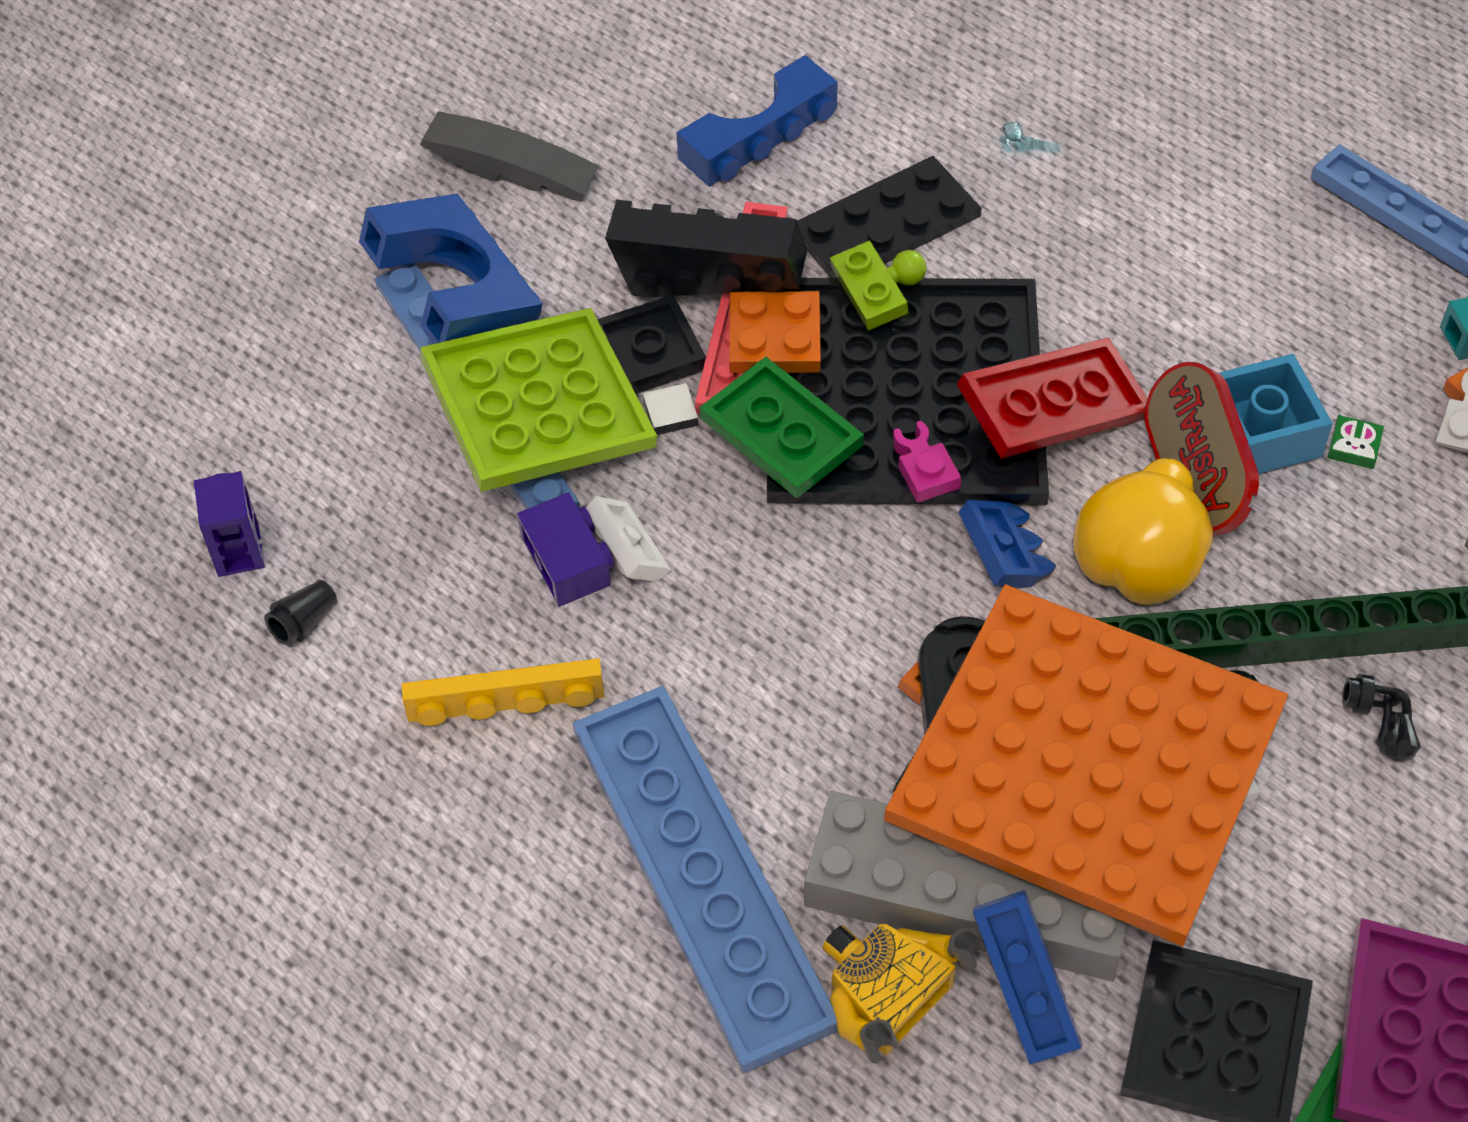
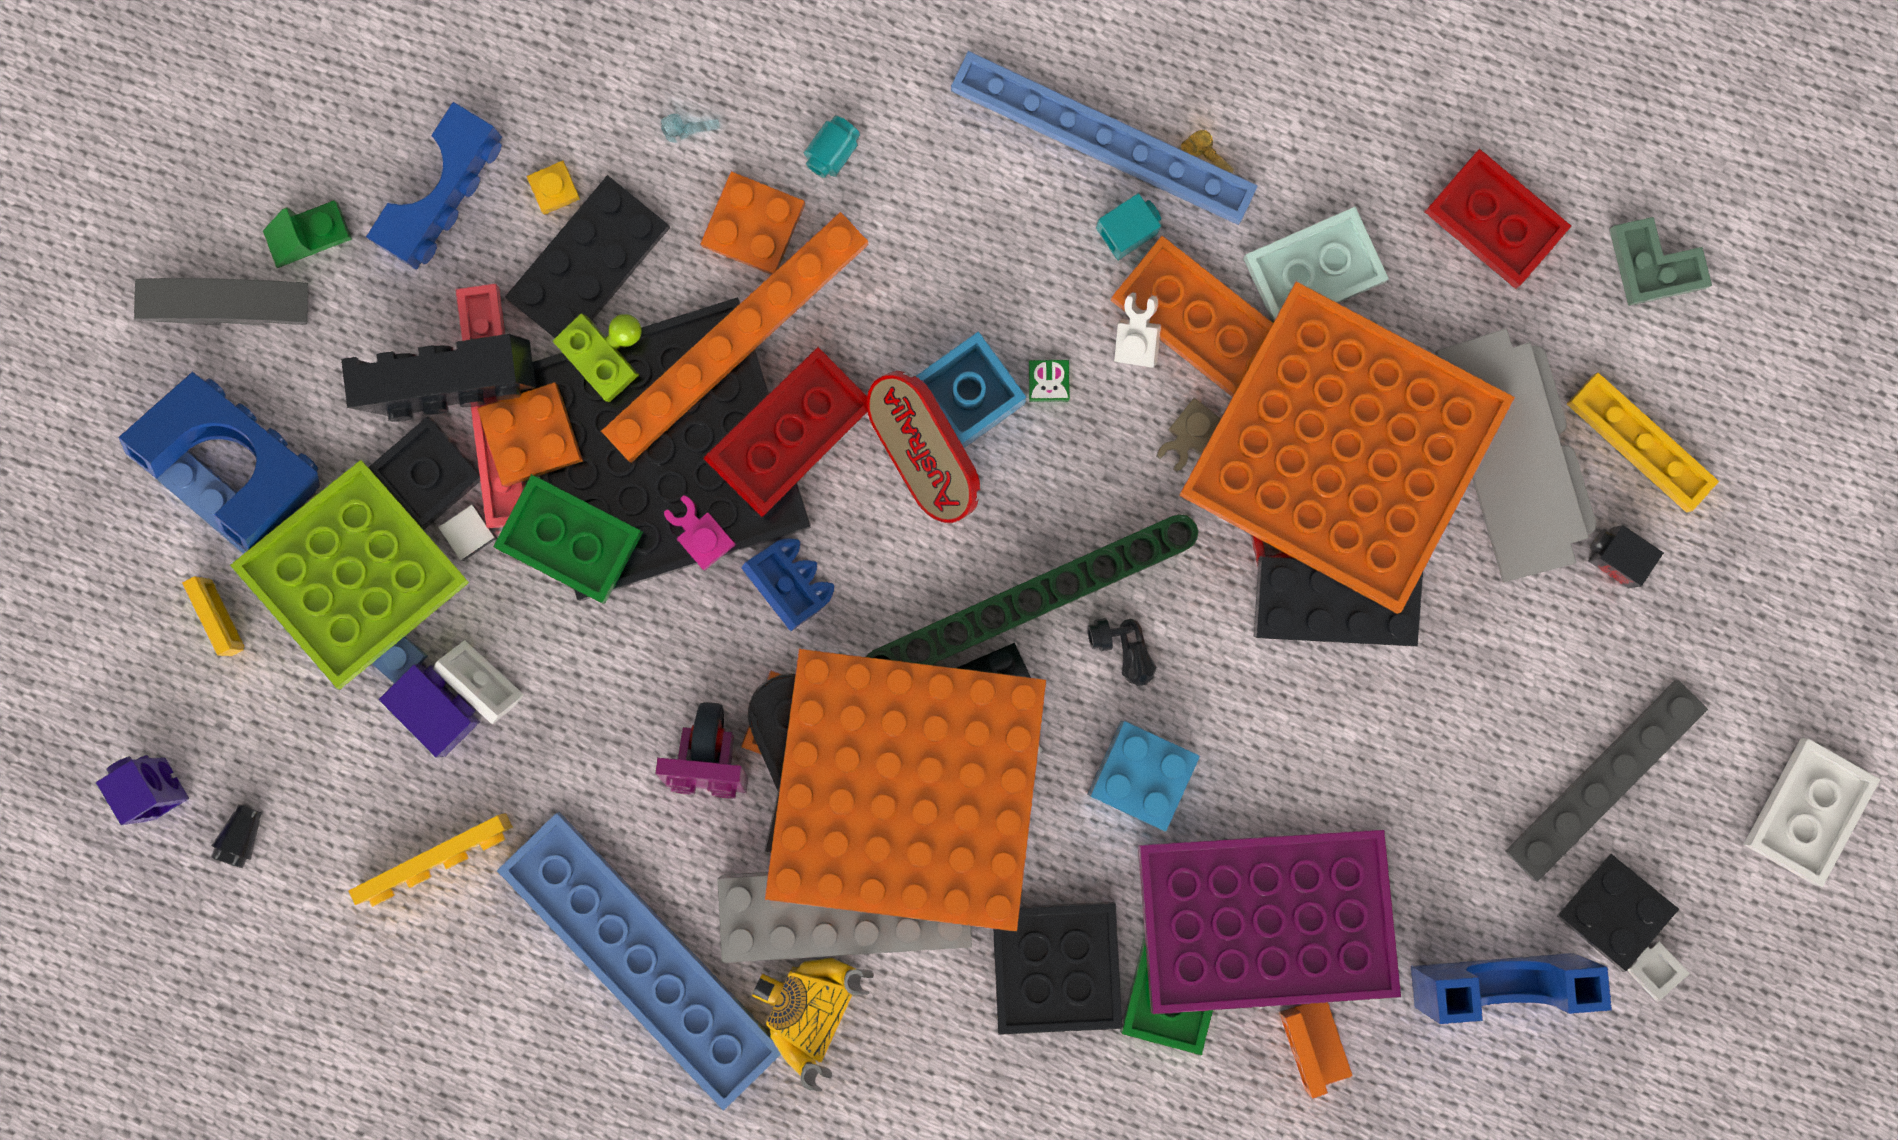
camera: 20 degrees left, 30 degrees up
(376, 403) = (213, 616): none -> yellow tile
(604, 130) = (304, 234): none -> green slope
(853, 676) = (704, 758): none -> magenta plate
(873, 154) = (553, 187): none -> yellow plate
(1020, 307) = (735, 337): none -> orange plate
(1027, 977) = (908, 983): blue plate -> none
(1069, 231) = (752, 223): none -> orange plate
(1144, 533) = (898, 545): yellow piece -> none
(1173, 186) = (831, 147): none -> teal brick
(1381, 847) = (1143, 775): none -> dark azure brick

